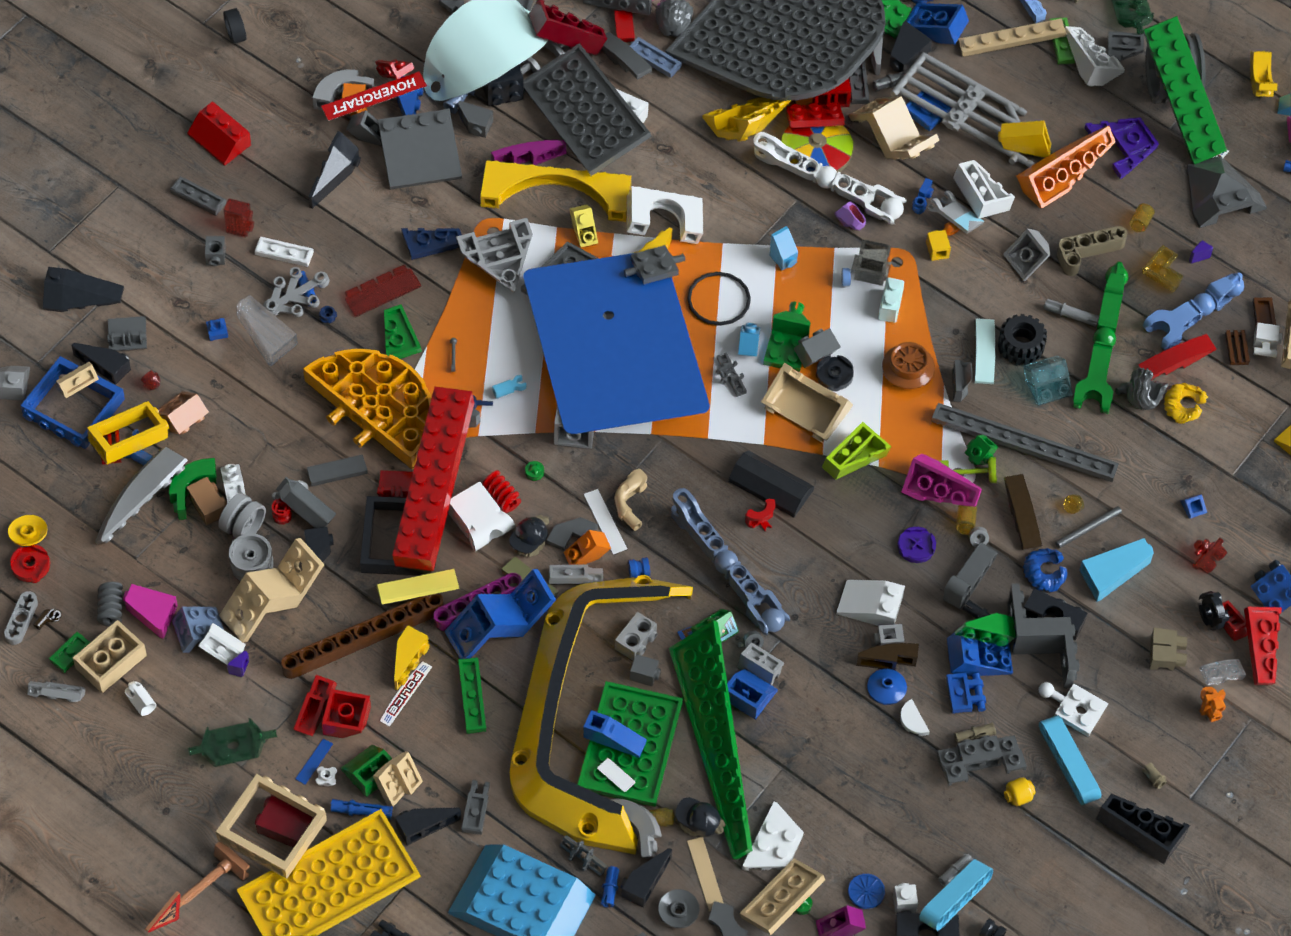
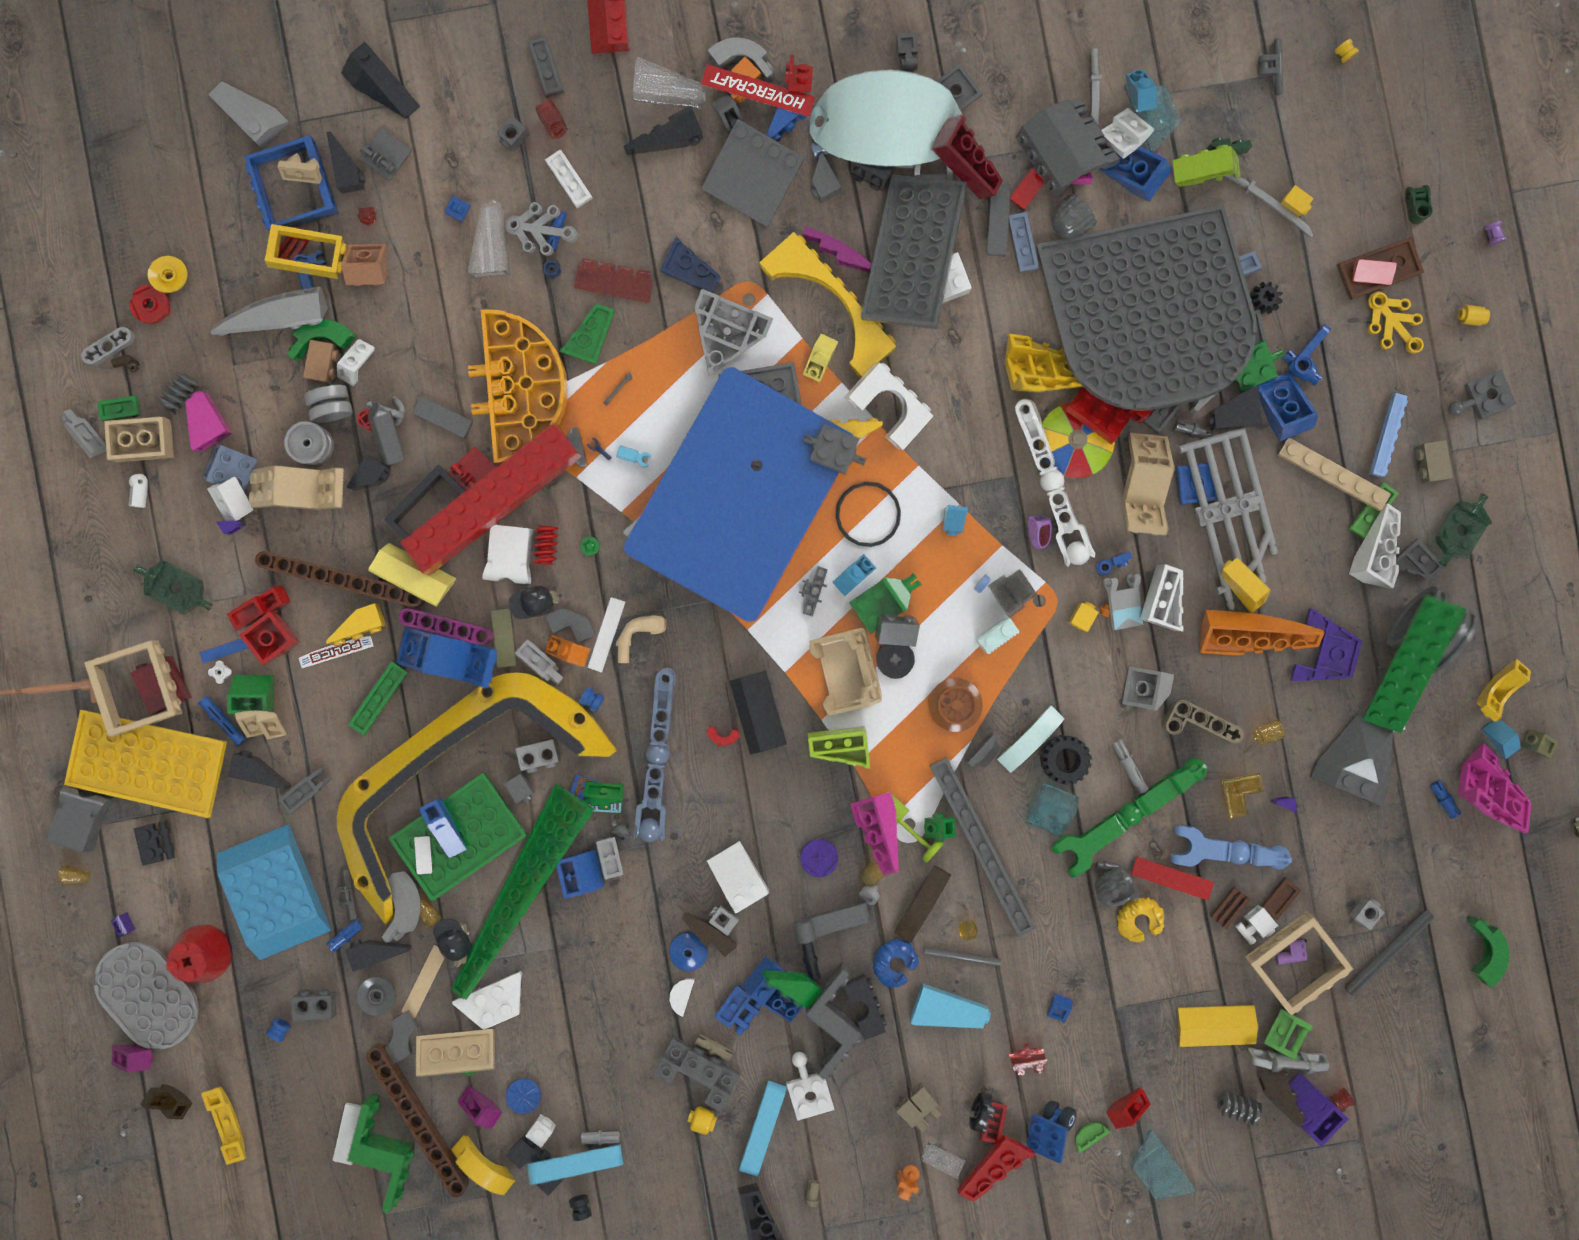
camera: 45 degrees right, 30 degrees up
(300, 144) = (664, 87): none -> clear slope

